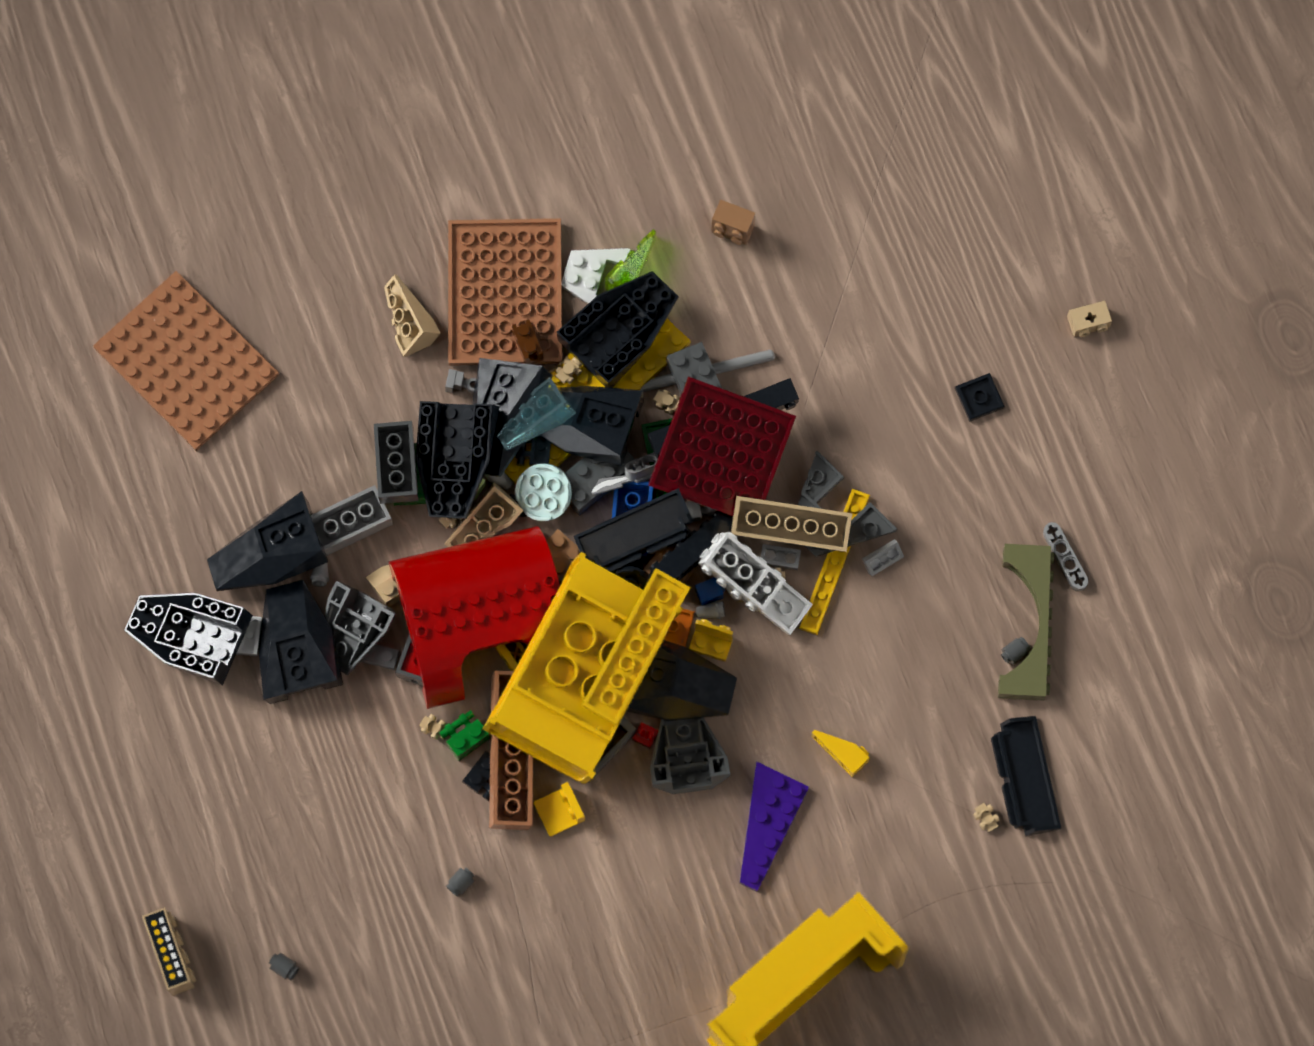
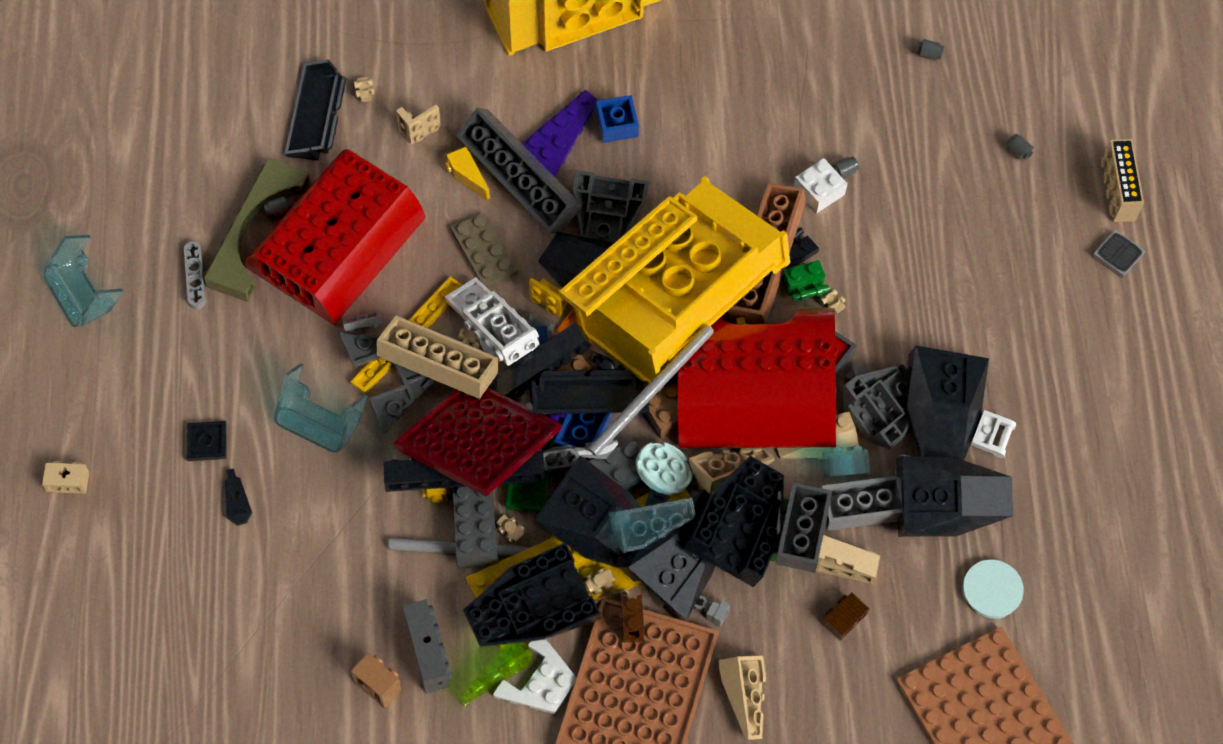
camera: 165 degrees left, 10 degrees down
(157, 875) = (1119, 253): none -> tile
(190, 632) = (1047, 444): black wedge -> none
(210, 483) = (993, 589): none -> light aqua tile
(338, 413) = (845, 615): none -> reddish brown brick
(348, 462) = (847, 561): none -> tan wedge
(374, 550) = (846, 462): none -> clear light blue brick
(479, 850) = (821, 185): none -> white brick
(559, 810) = (741, 192): yellow bracket -> none
(575, 545) = (649, 392): none -> light grey piece
(701, 265) = (428, 650): none -> dark grey brick
(711, 859) = (617, 118): none -> blue brick
(789, 761) = (519, 170): none -> dark grey brick
(795, 674) = (484, 250): none -> dark tan plate
(886, 446) = (312, 421): none -> clear light blue windscreen
(917, 638) = (344, 254): none -> red slope
(922, 780) = (417, 128): none -> tan bracket
(925, 345) = (233, 506): none -> black piece
(1169, 501) = (72, 287): none -> clear light blue windscreen

